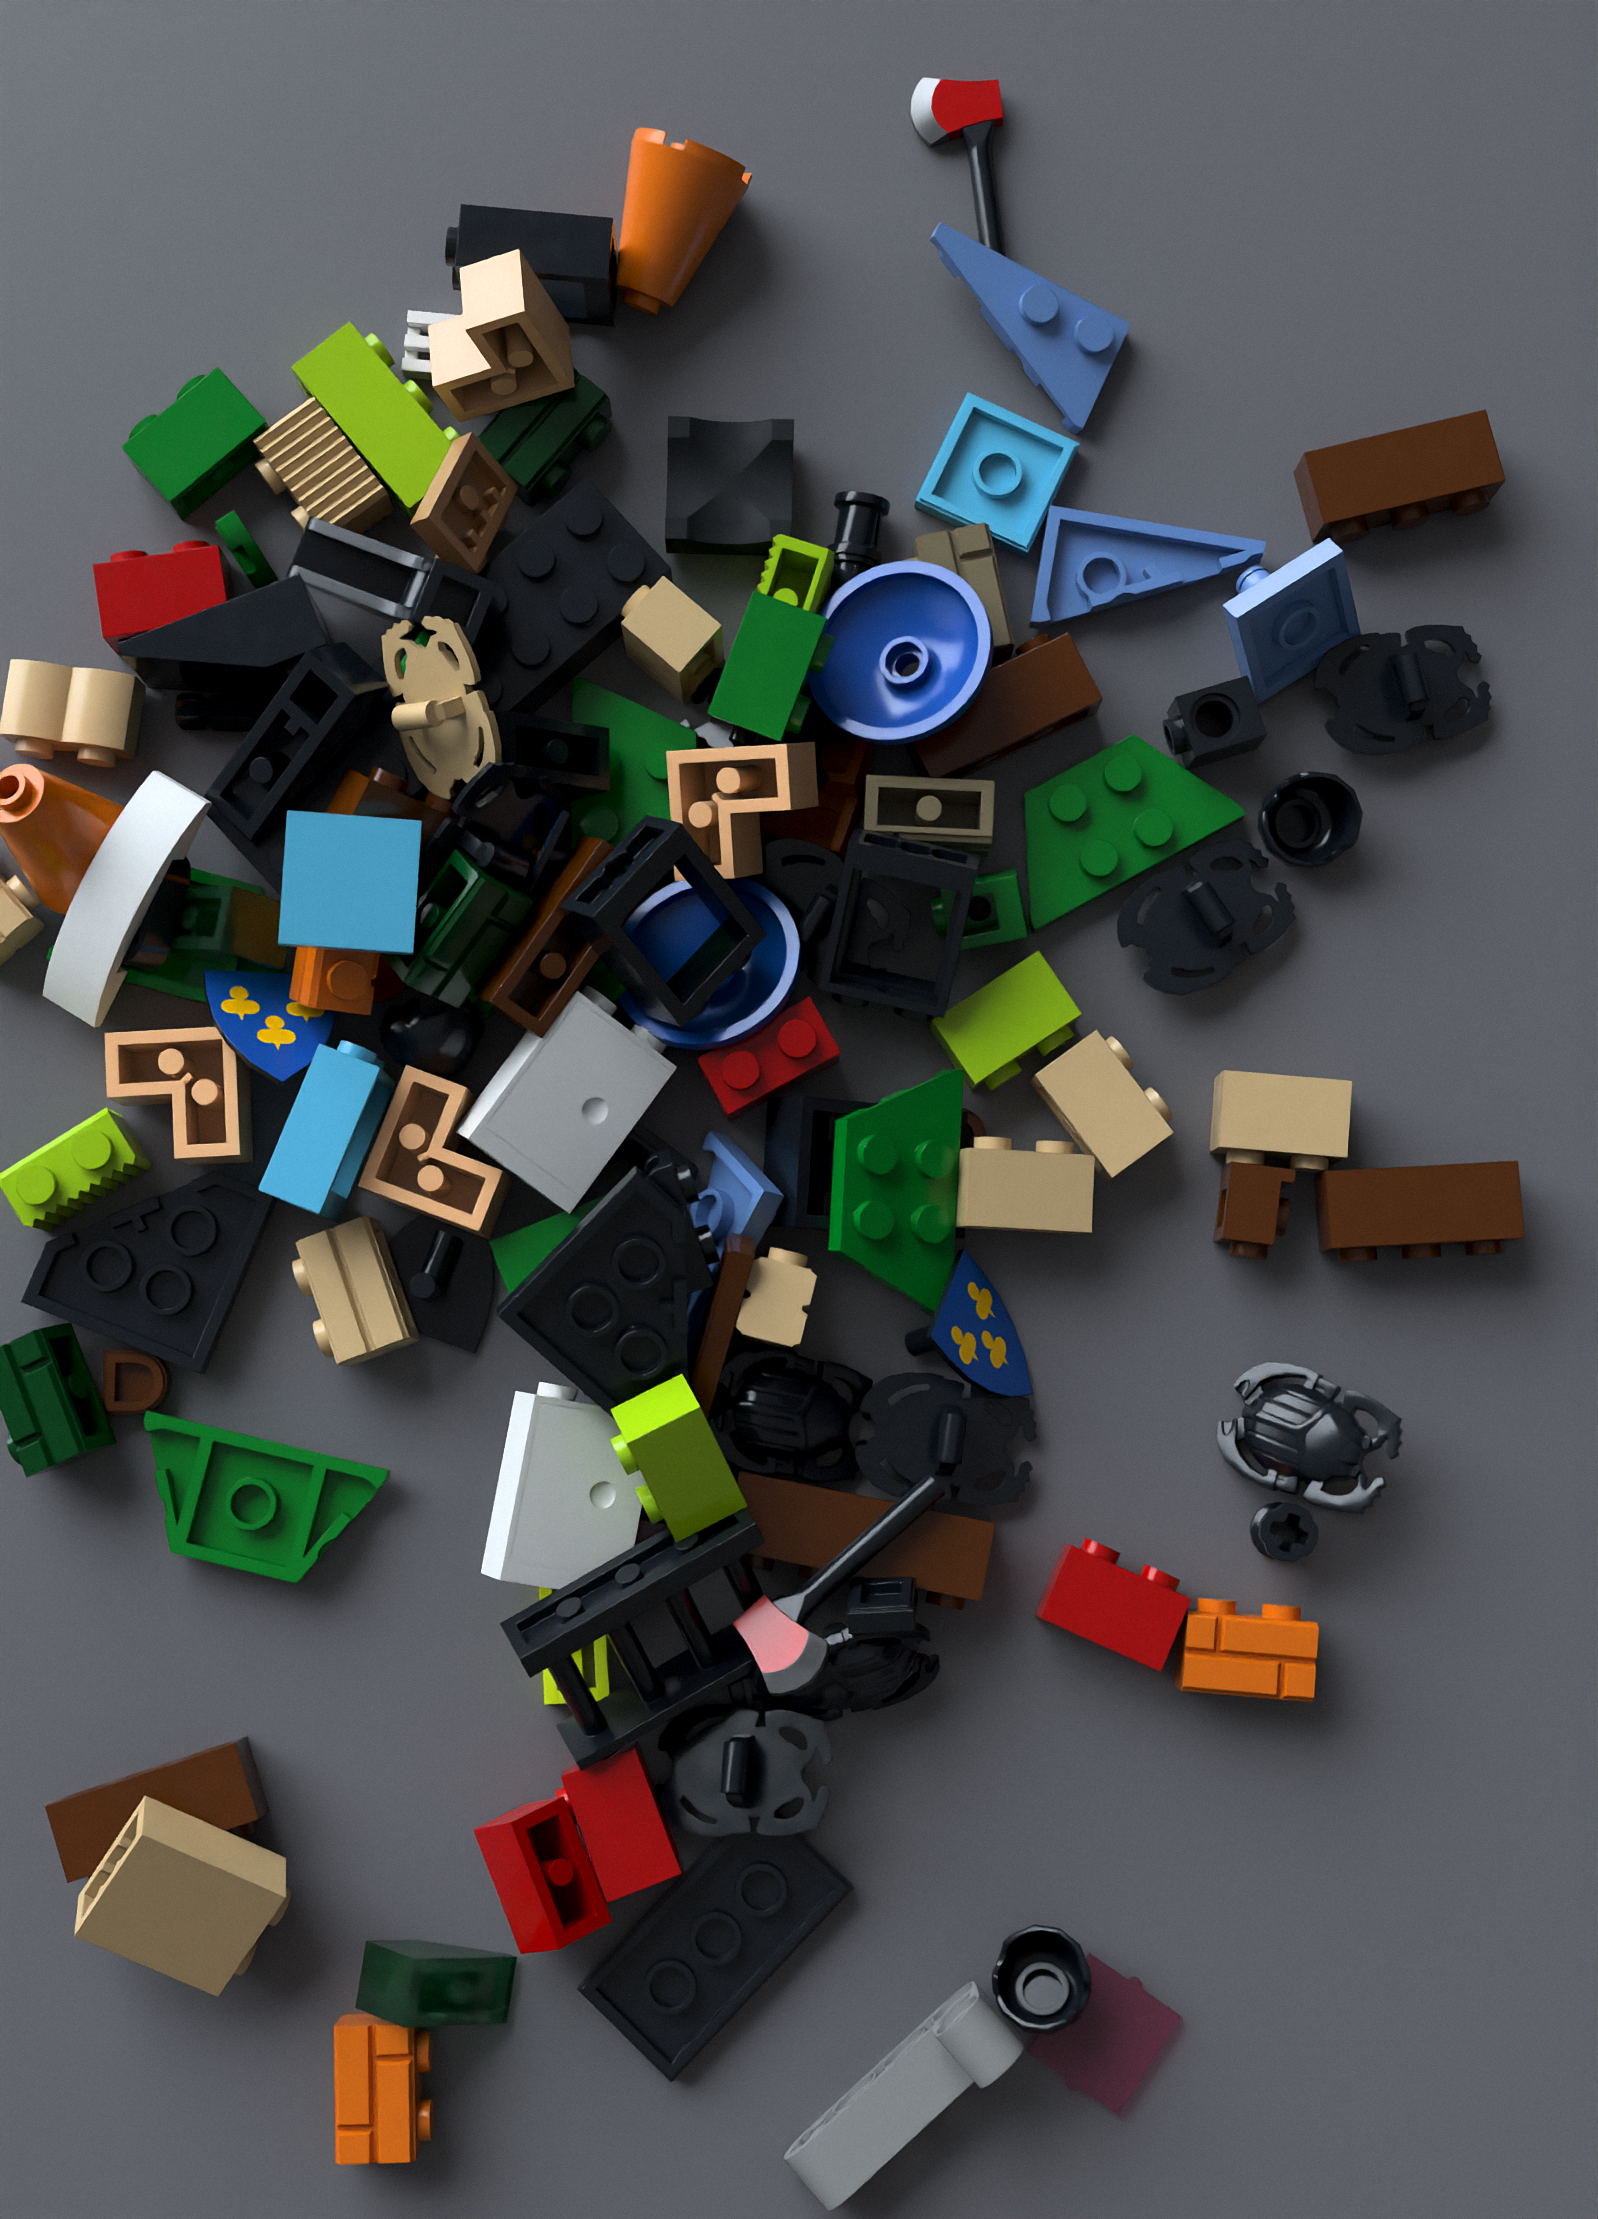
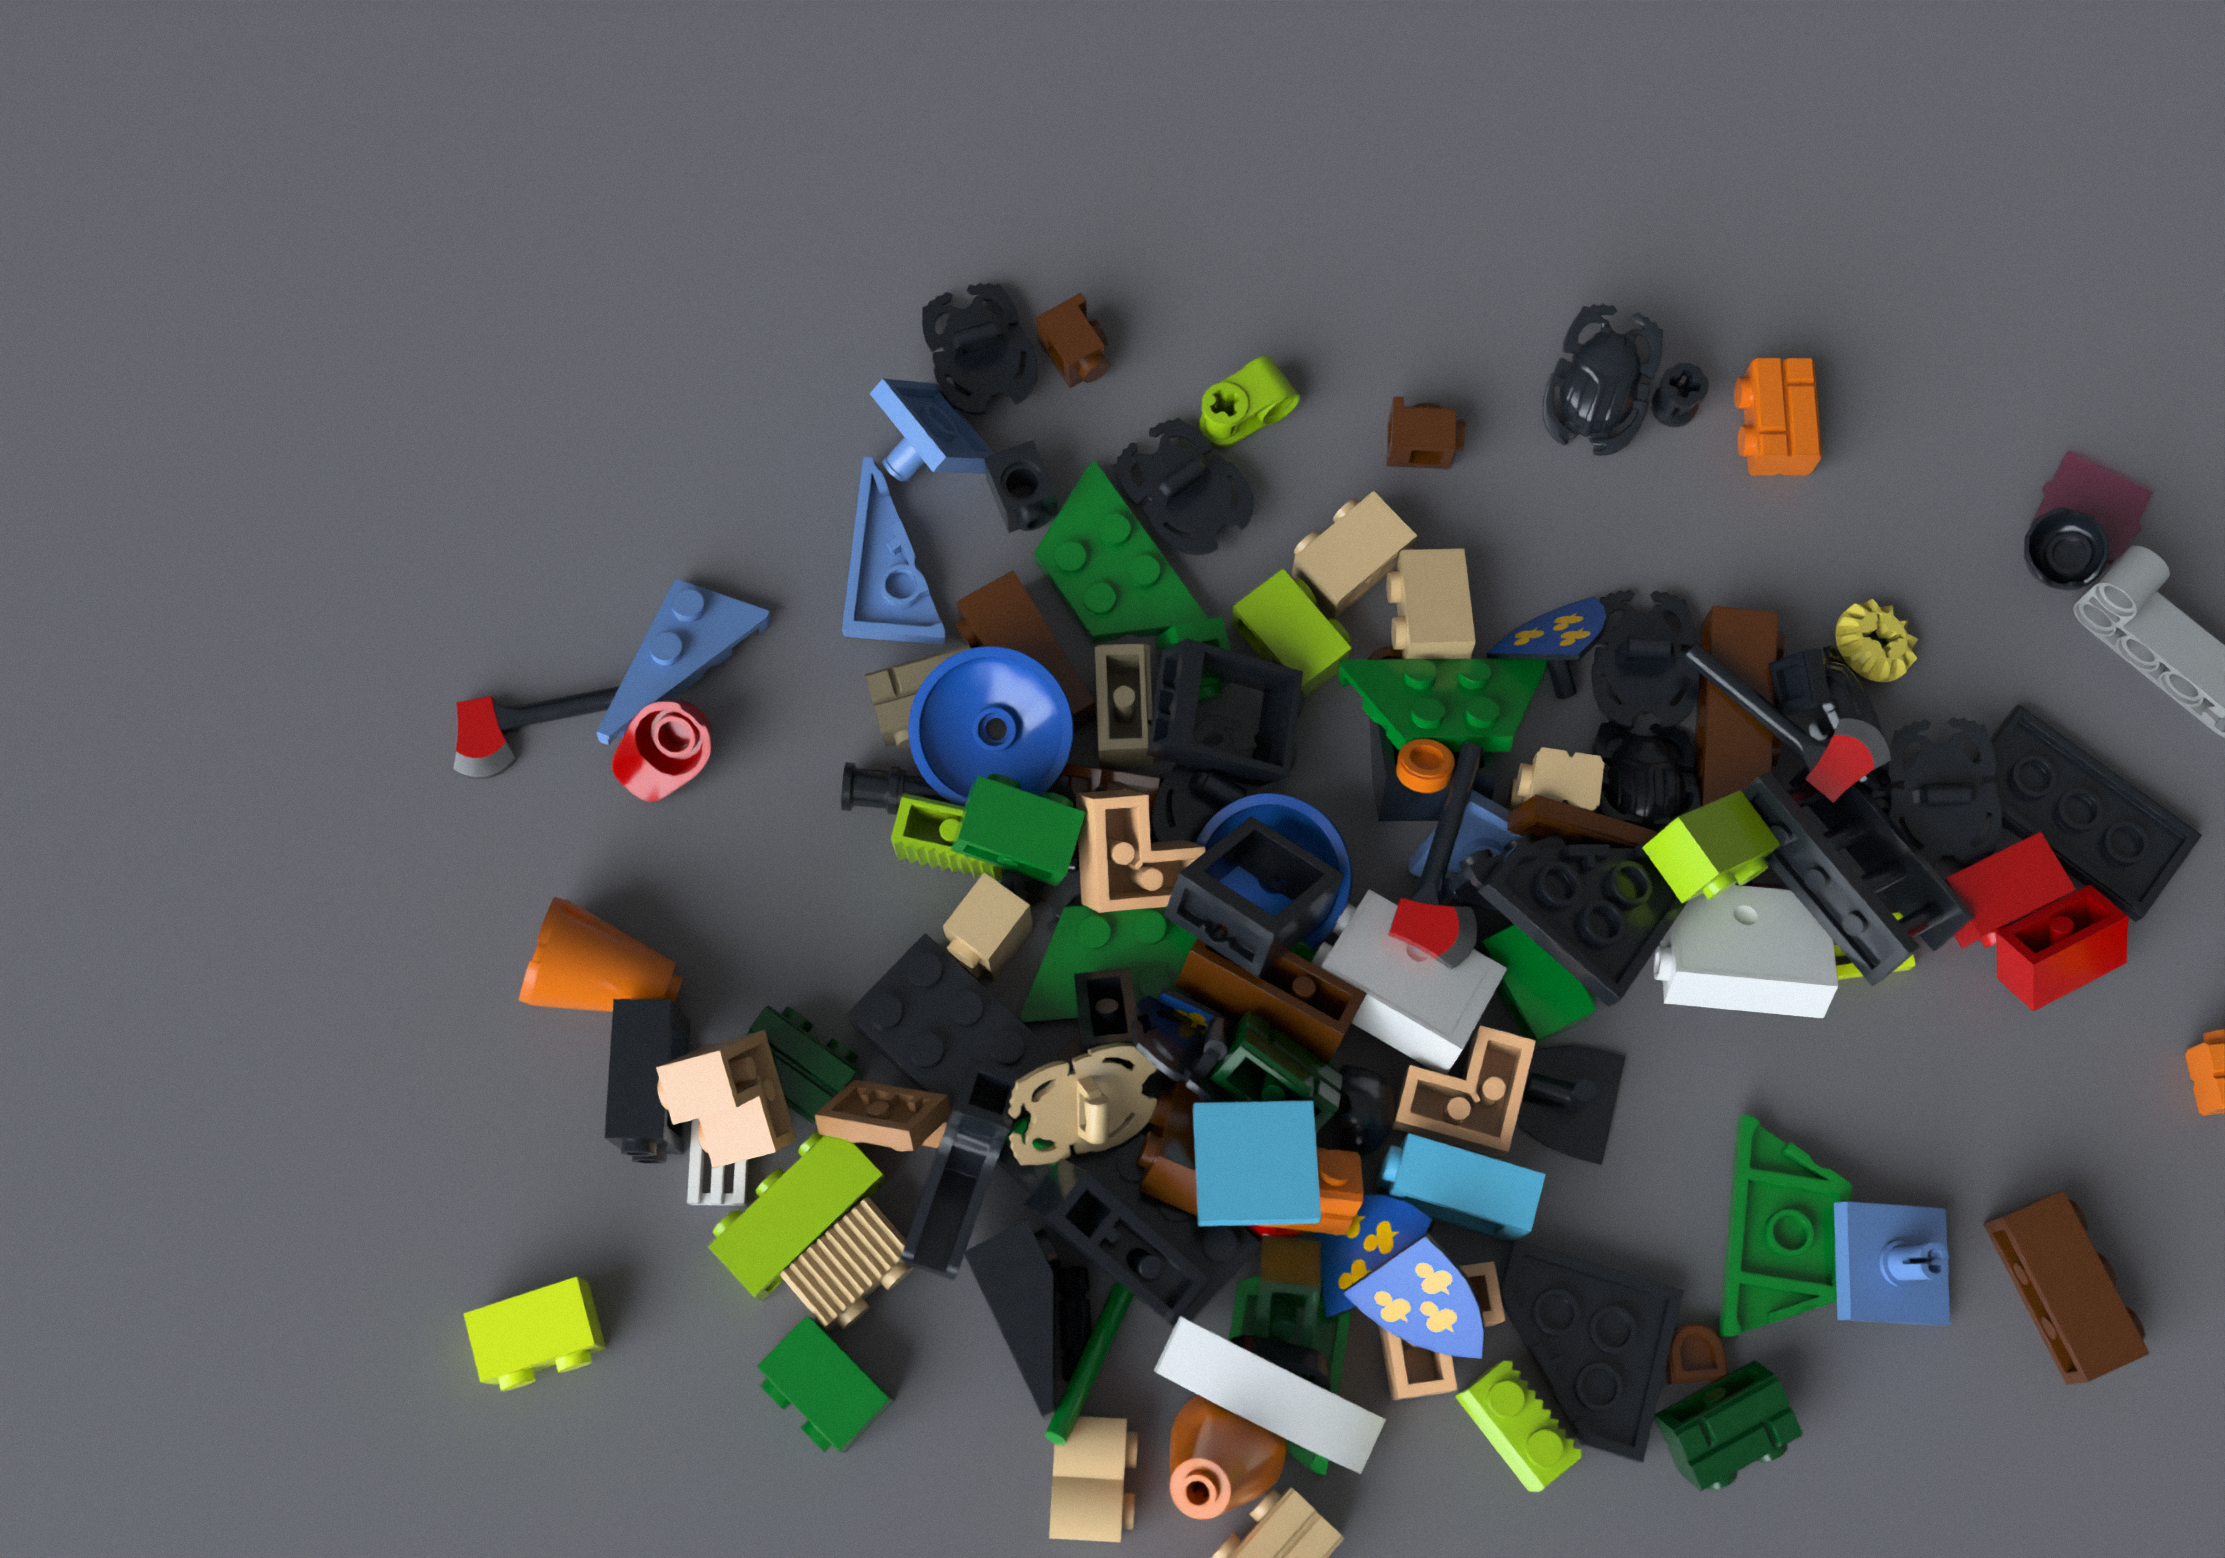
camera: 90 degrees left, 10 degrees down
(157, 589) = (973, 1399): red brick -> none
(170, 707) = (1089, 1365): none -> green bar
(182, 1897) = (2144, 1248): tan brick -> none
(197, 1061) = (1423, 1300): none -> shield
(204, 1613) = (1891, 1263): none -> medium blue tile
(245, 550) = (925, 1330): green tile -> none
(284, 148) = (535, 1332): none -> neon yellow brick
(354, 1292) = (1593, 1157): tan brick -> none
(434, 1983) = (2165, 1035): clear green slope -> none
(613, 1136) = (1421, 921): none -> piece
(728, 485) = (840, 898): black brick -> none
(769, 1061) = (1346, 803): red brick -> none
(810, 1141) = (1425, 765): none -> orange tile
(921, 301) = (662, 749): none -> red piece
(924, 1708) = (1867, 655): none -> light yellow gear
(997, 474) = (812, 681): medium azure tile -> none
(1113, 1605) = (1758, 518): red brick -> none
(1281, 1119) = (1347, 418): tan brick -> none
(1309, 819) = (1097, 408): black hair -> none
(1312, 1006) = (1246, 403): none -> lime piece
(1399, 478) = (803, 358): reddish brown brick -> none
(1403, 798) = (1073, 341): none -> reddish brown brick
(1419, 1209) = (1408, 311): reddish brown brick -> none

